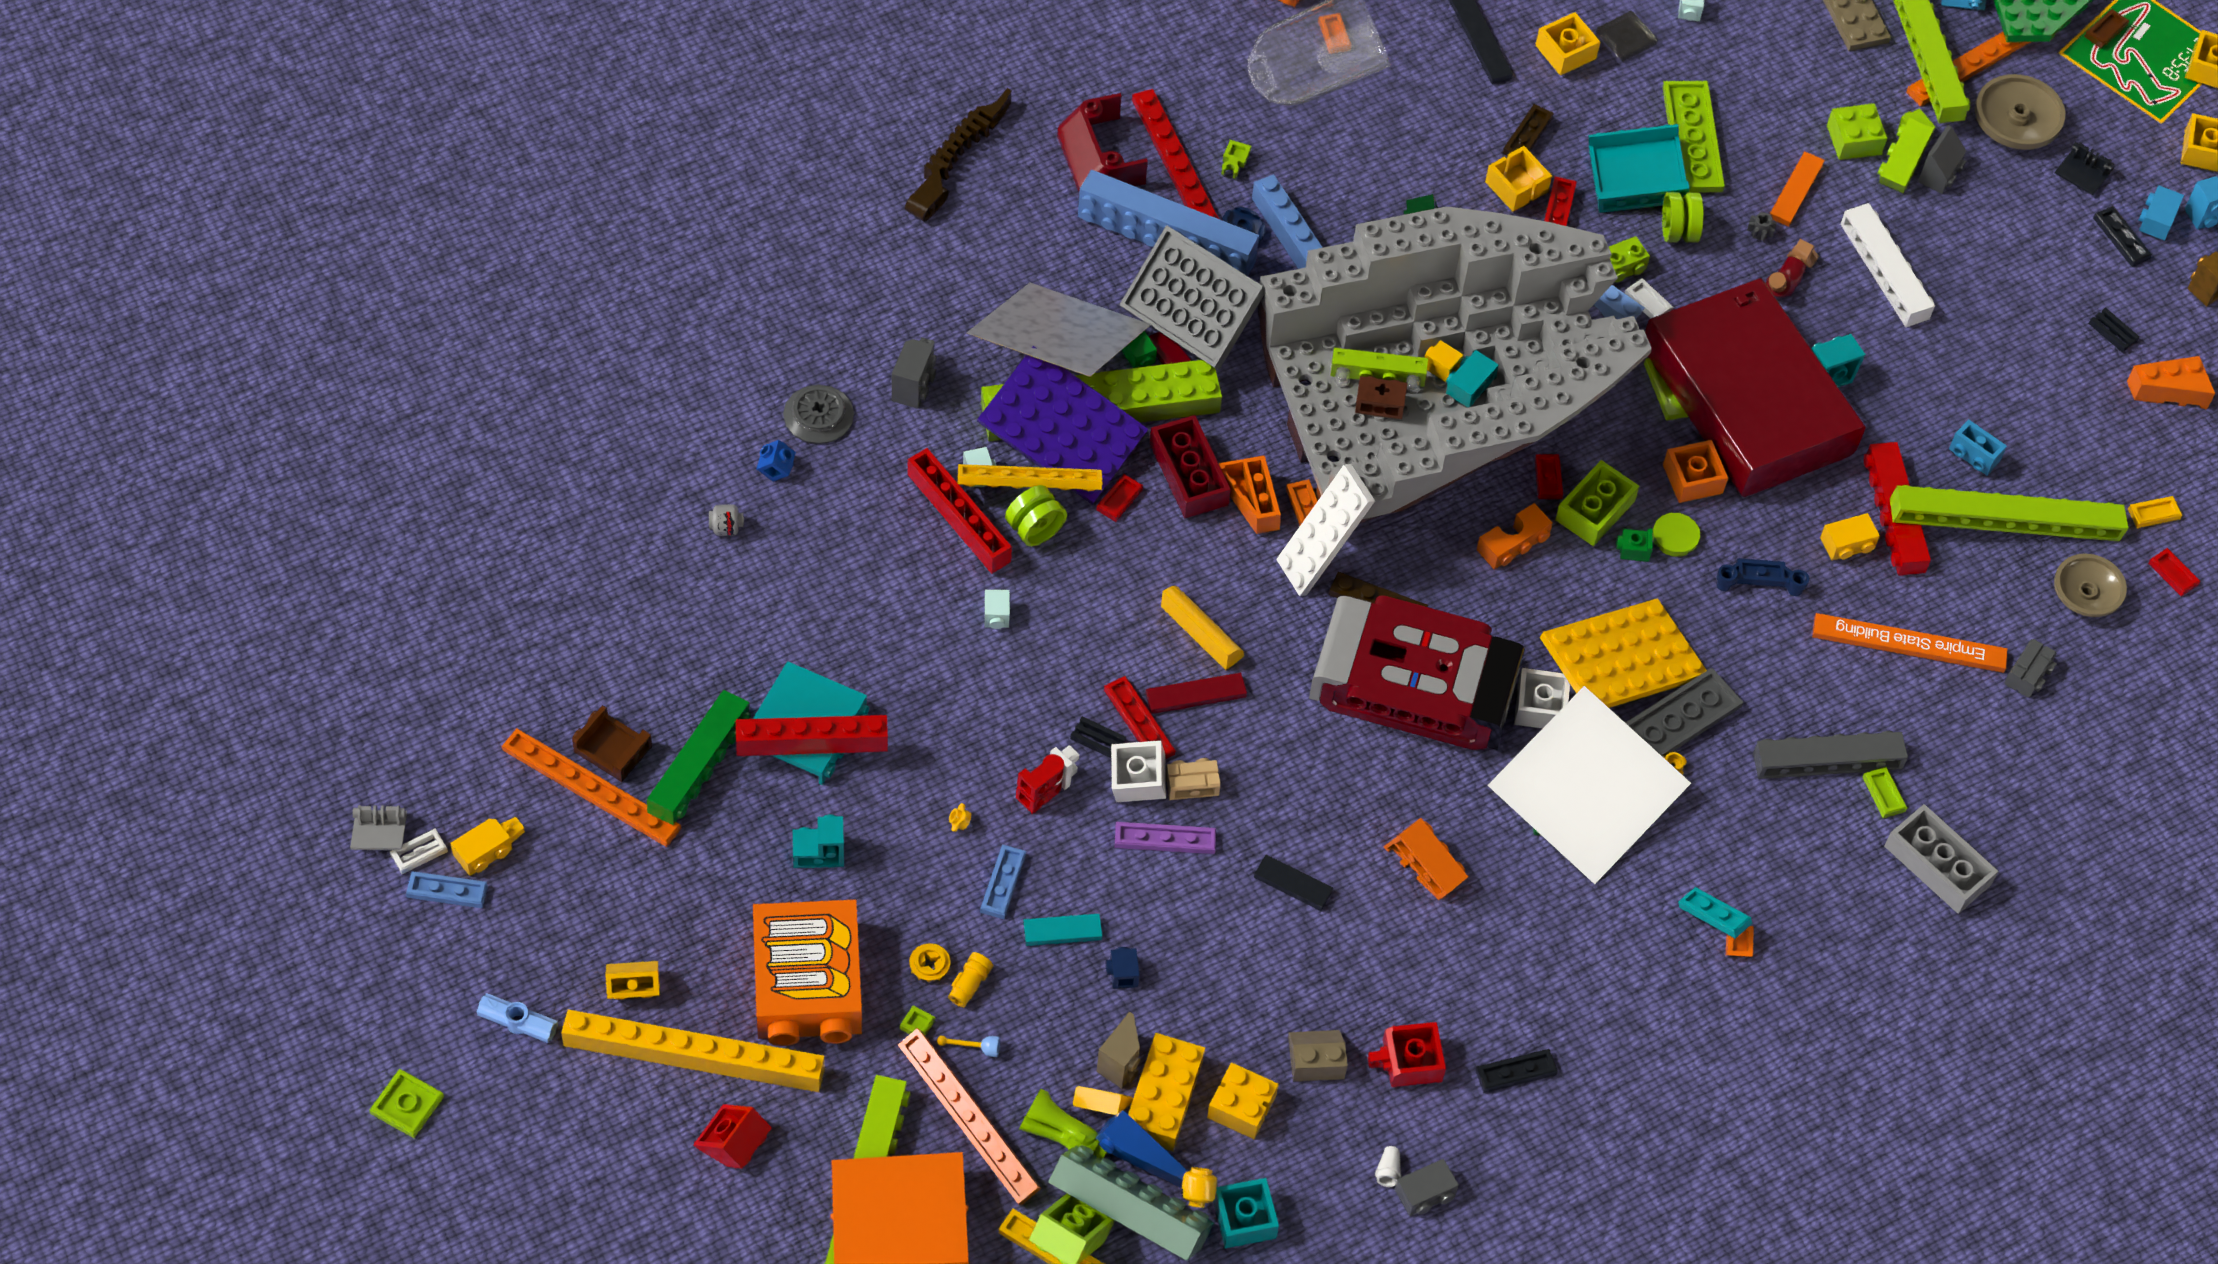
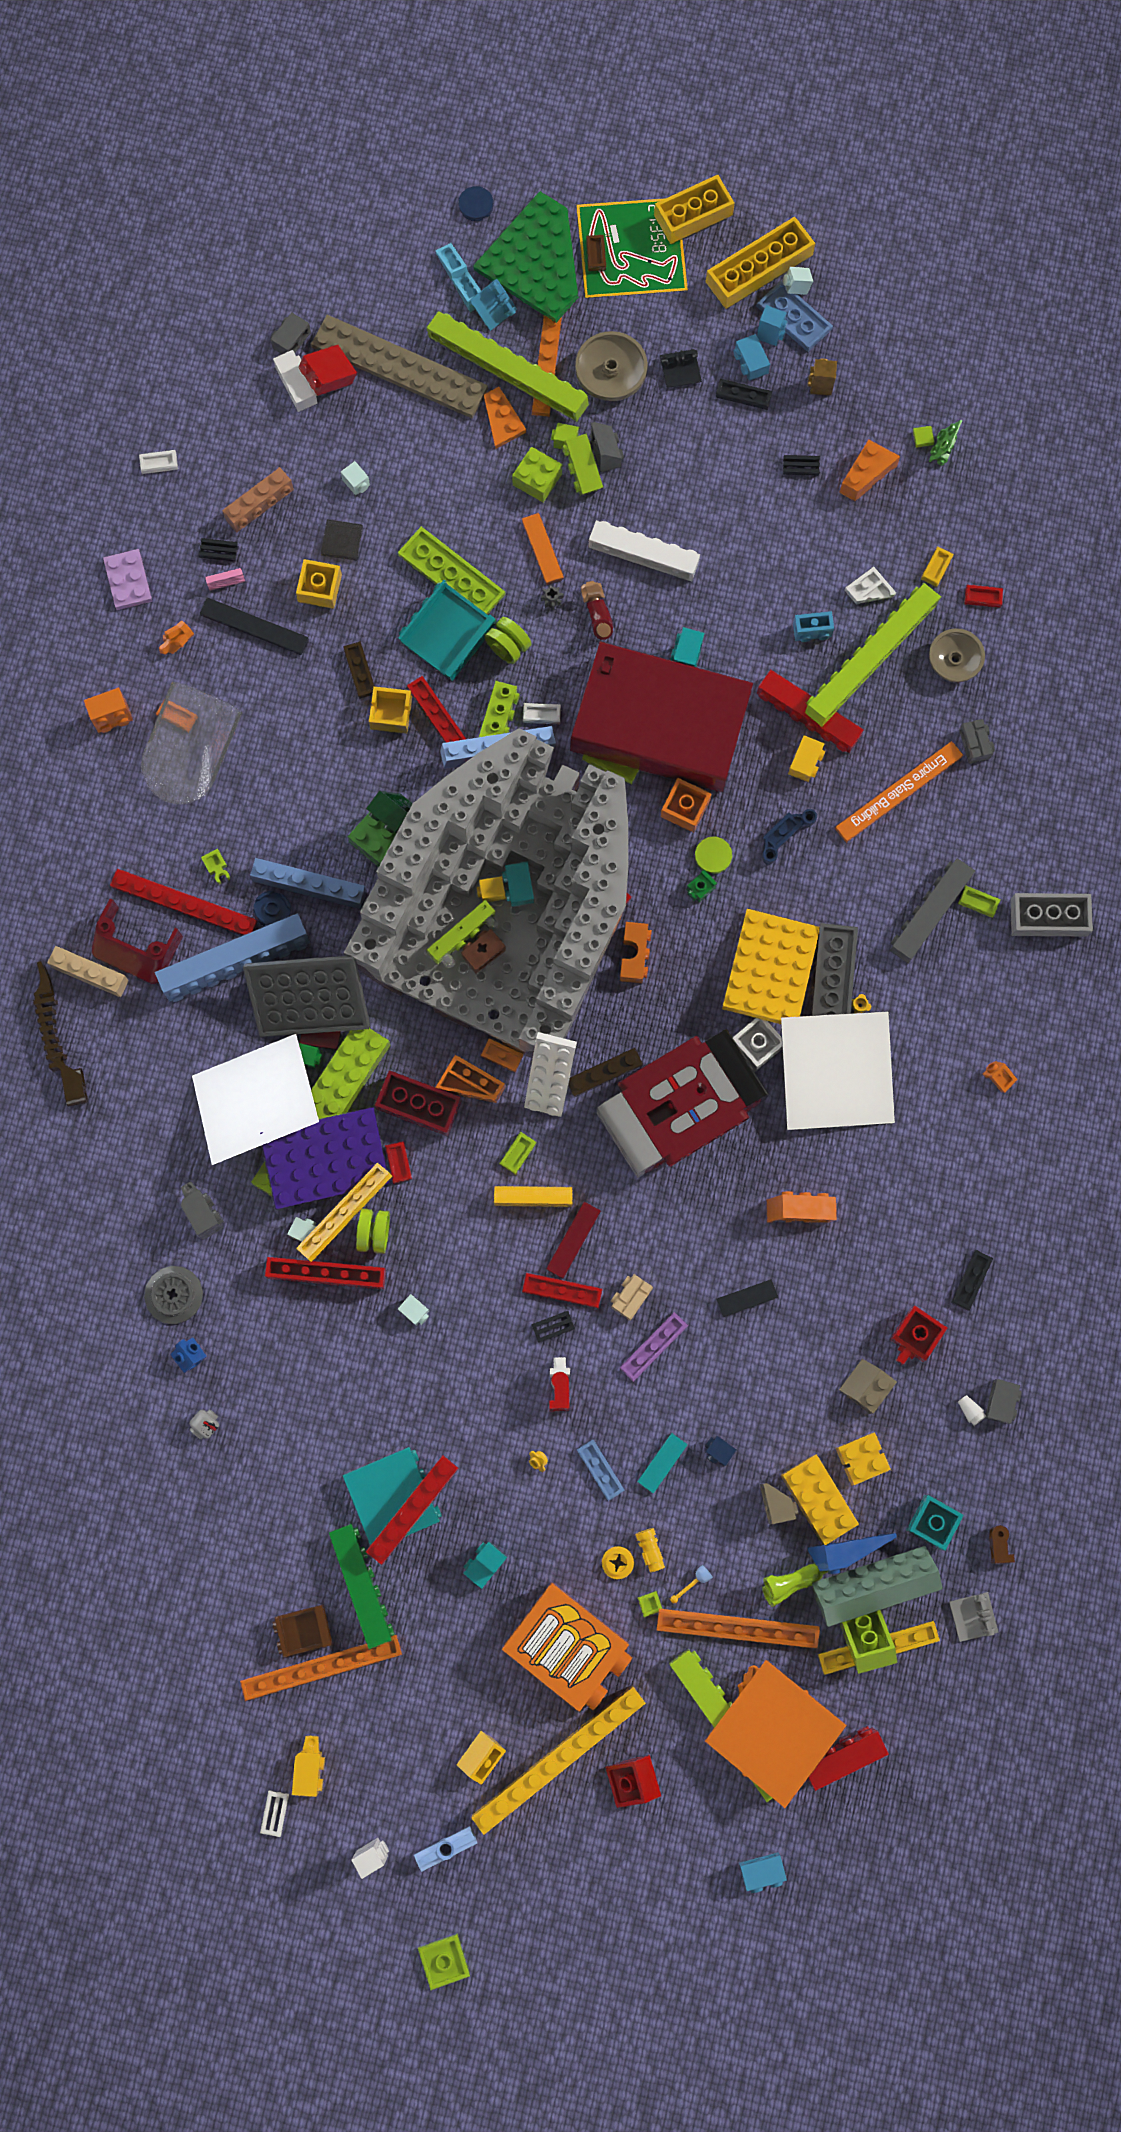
camera: 45 degrees left, 20 degrees up
(378, 828) = (239, 1828): light grey hinge -> none
(447, 889) = (317, 1817): medium blue tile -> none
(452, 947) = (370, 1857): none -> white brick
(1039, 133) = (88, 971): none -> tan brick
(1100, 1100) = (796, 1542): yellow slope -> none
(1138, 771) = (602, 1327): white brick -> none
(1199, 1186) = (903, 1540): yellow head -> none
(1229, 586) = (518, 1153): none -> lime tile
(1597, 503) = (656, 883): lime brick -> none
(1715, 912) = (976, 1075): teal tile -> none
(1875, 71) = (502, 417): none -> orange wing
(2068, 469) = (869, 588): none -> white wing

